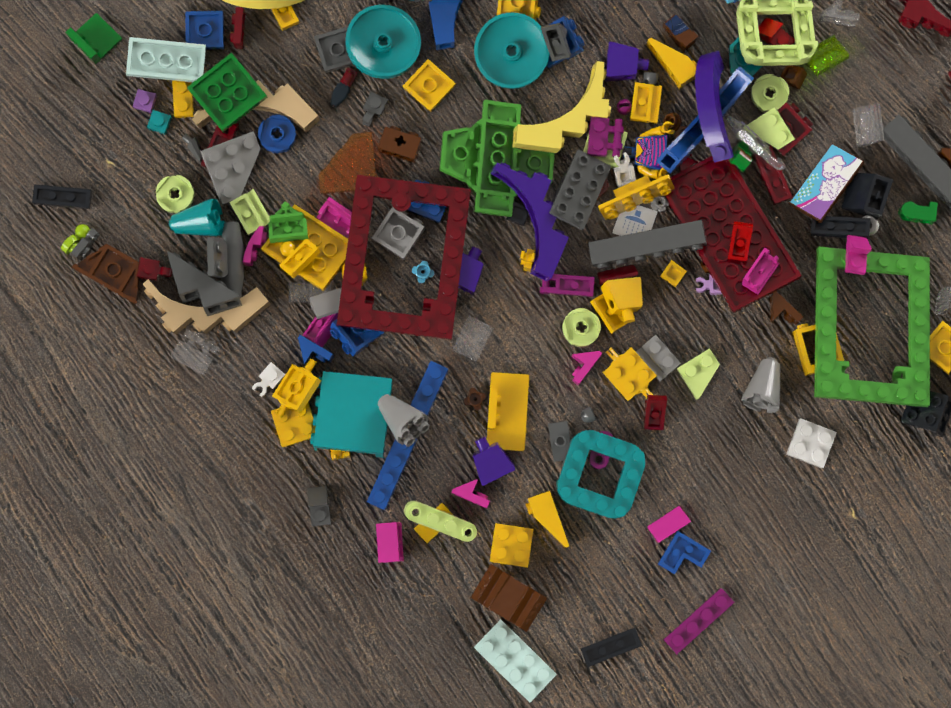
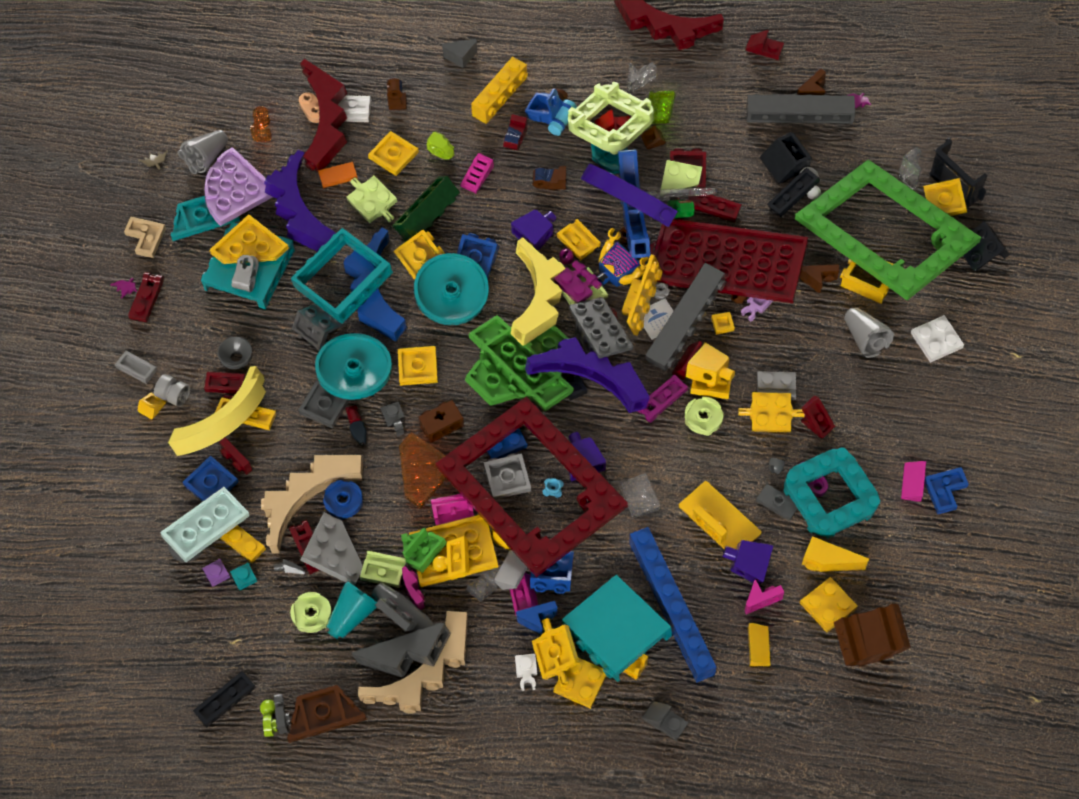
camera: 45 degrees left, 20 degrees down
(95, 38) = (129, 566): green bracket -> none
(150, 269) = (351, 680): dark red plate -> none
(193, 358) = (453, 711): clear plate -> none
(227, 92) = (277, 500): green plate -> none
(389, 542) = (745, 689): dark pink hinge -> none
(401, 202) = (489, 447): dark red plate -> none
(403, 420) = (658, 585): light grey cone -> none
(440, 521) = (762, 636): yellowish green plate -> none
(480, 398) = (687, 528): reddish brown plate -> none
(515, 660) = (925, 679): light aqua plate -> none
(527, 259) = (617, 407): yellow plate -> none
(556, 41) = (477, 251): dark grey slope -> none
(587, 360) = (734, 433): dark pink slope -> none
(611, 647) = (976, 599): black plate -> none
(624, 172) = (616, 291): white plate -> none
(651, 78) = (563, 221): dark grey hinge -> none
(674, 118) = (604, 234): reddish brown plate -> none
(676, 64) = (570, 199): yellow slope -> none
(698, 620) = (1008, 522): magenta plate -> none
(699, 372) = (813, 367): yellowish green wing -> none
(740, 241) = (744, 253): red slope -> none
(760, 271) = (780, 258): dark pink hinge -> none
(773, 83) = (652, 169): yellowish green plate -> none
(826, 183) = (752, 177): tile -> none
(856, 254) = (825, 195): dark pink slope -> none
(868, 125) = (736, 119): clear plate -> none
(921, 214) = (831, 140): green leg -> none

